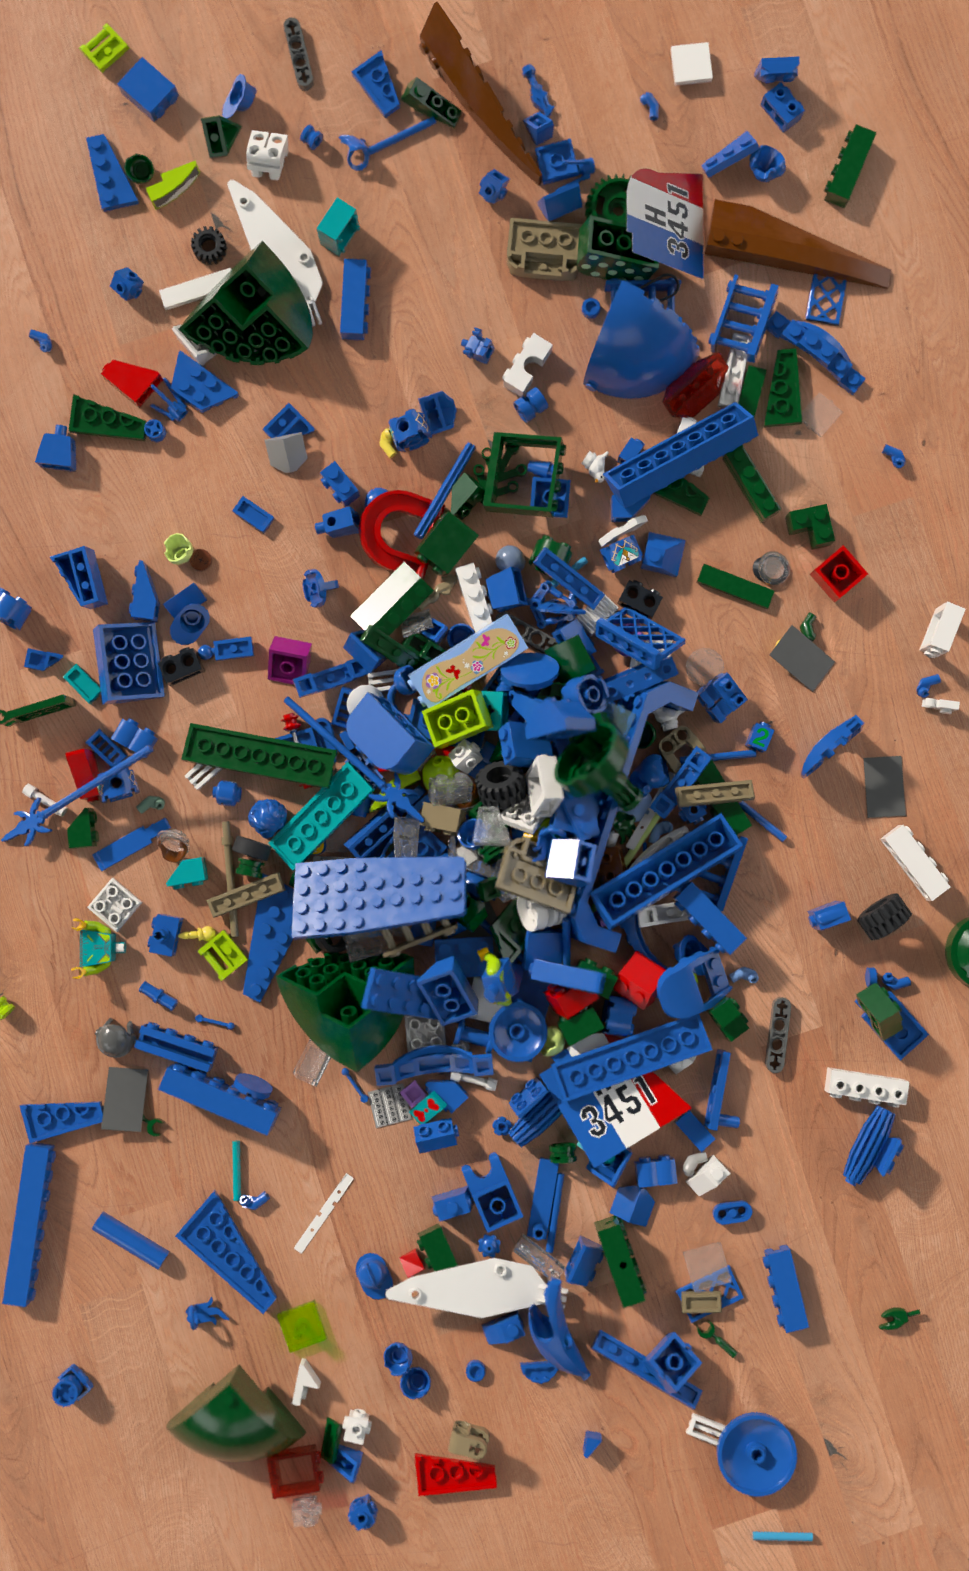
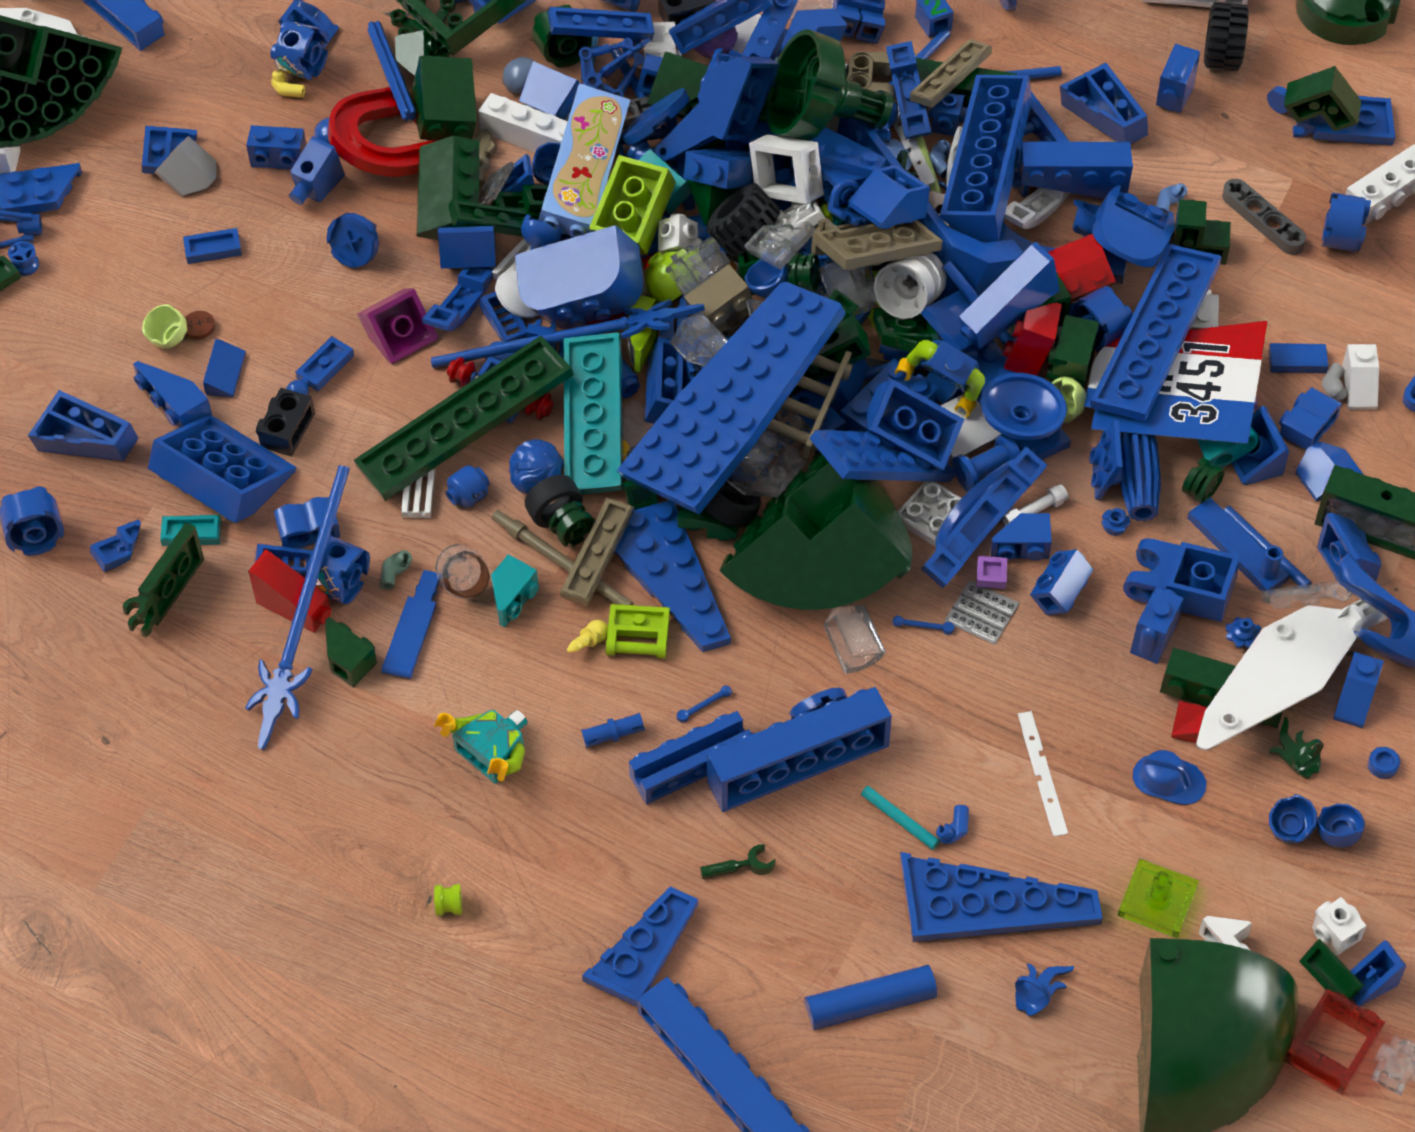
camera: 45 degrees left, 30 degrees down
(31, 792) = (242, 672): white bar -> none
(114, 904) = (461, 690): white tile -> none
(114, 1039) = (613, 810): dark grey helmet -> none
(124, 1099) = (694, 861): dark grey piece -> none
(165, 934) = (553, 665): blue brick -> none
(189, 624) = (252, 372): blue piece -> none
(427, 1108) = (1022, 564): teal tile -> none
(441, 1328) = (1299, 754): none -> dark green piece
(713, 1117) = (1274, 304): blue piece -> none
(777, 889) = (1105, 104): none -> blue wedge
(805, 1088) = (1344, 222): none -> blue brick

